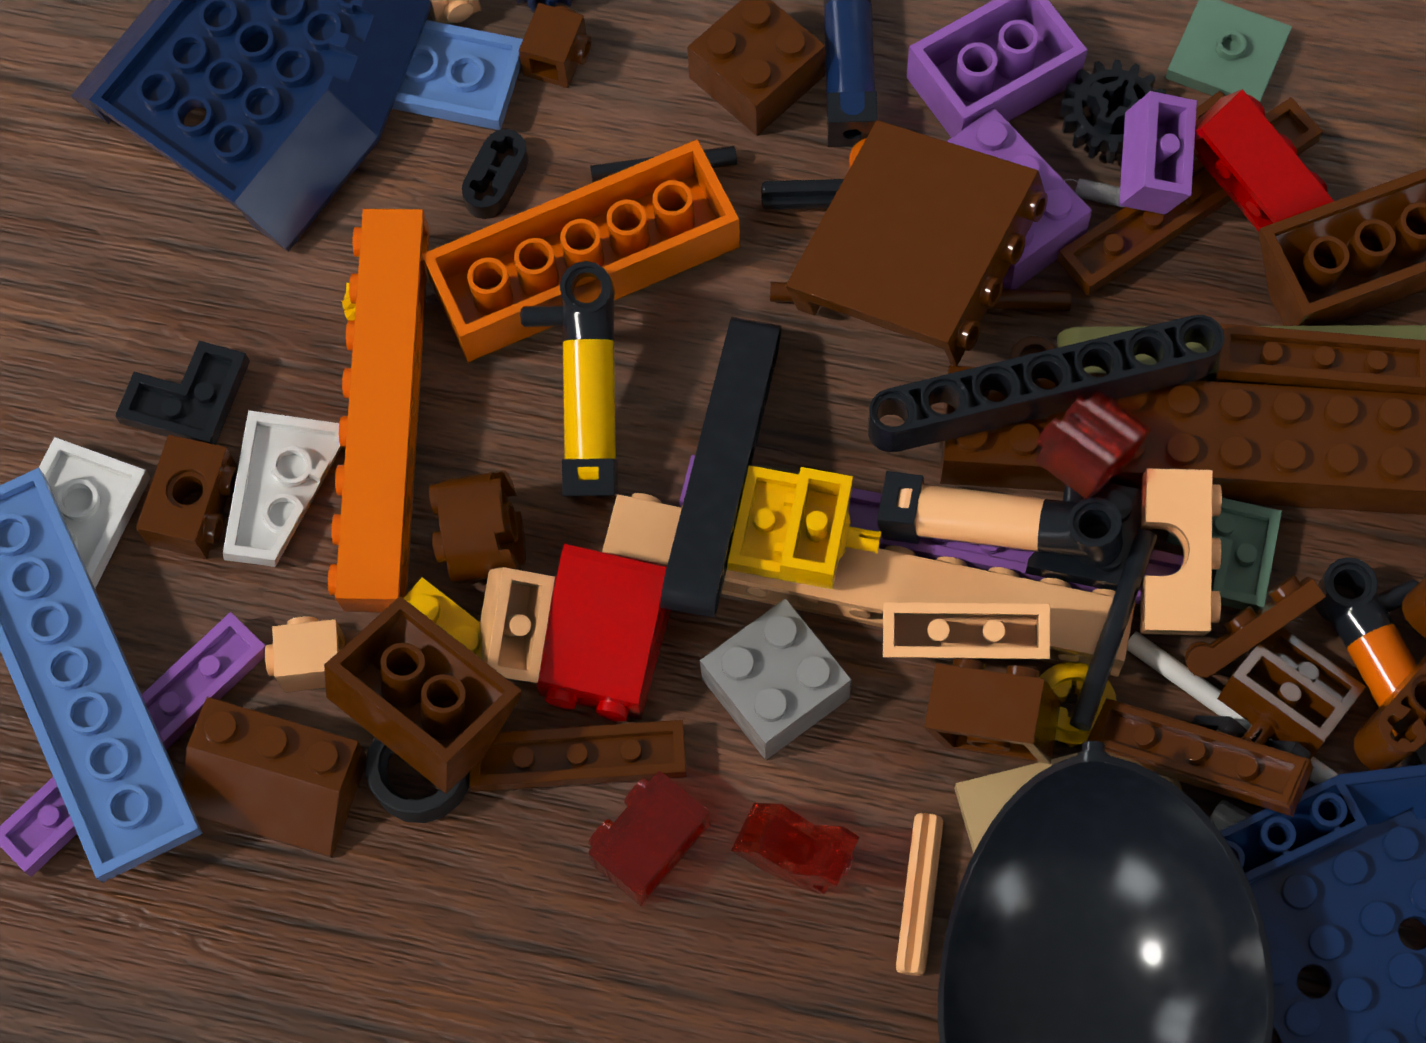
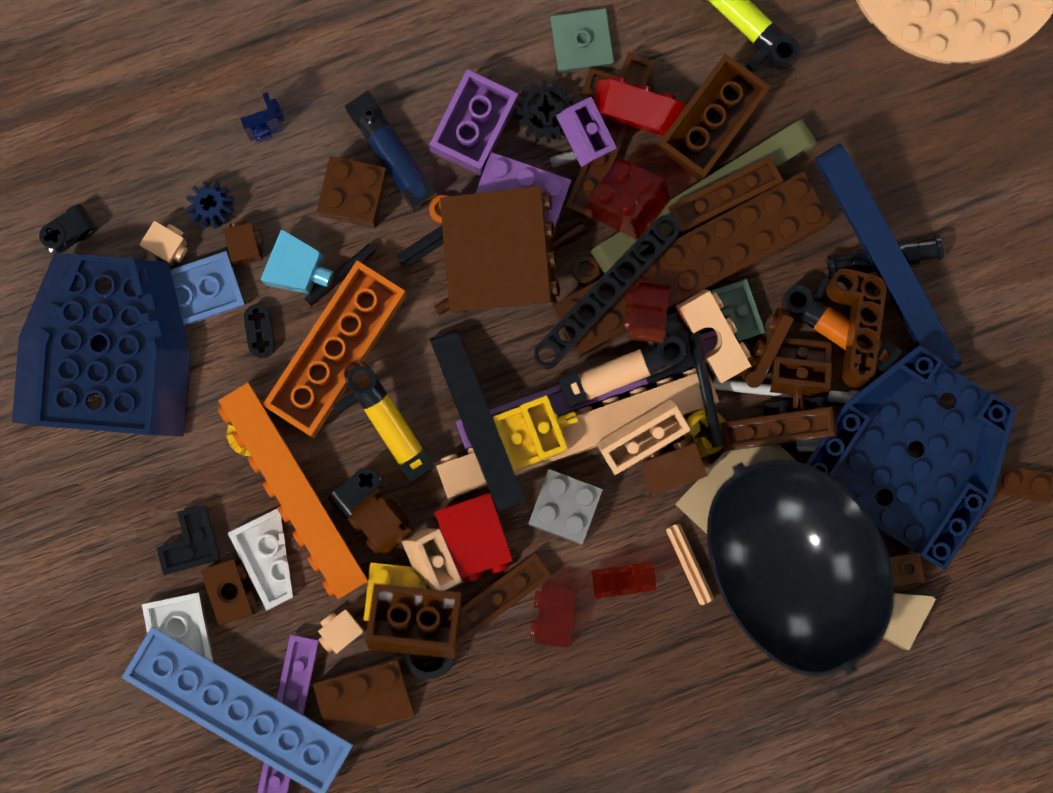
camera: 40 degrees left, 15 degrees up
(477, 456) = (352, 492): none -> black piece
(604, 111) = (295, 266): none -> medium azure torso
(1163, 278) = (628, 198): none -> clear red brick

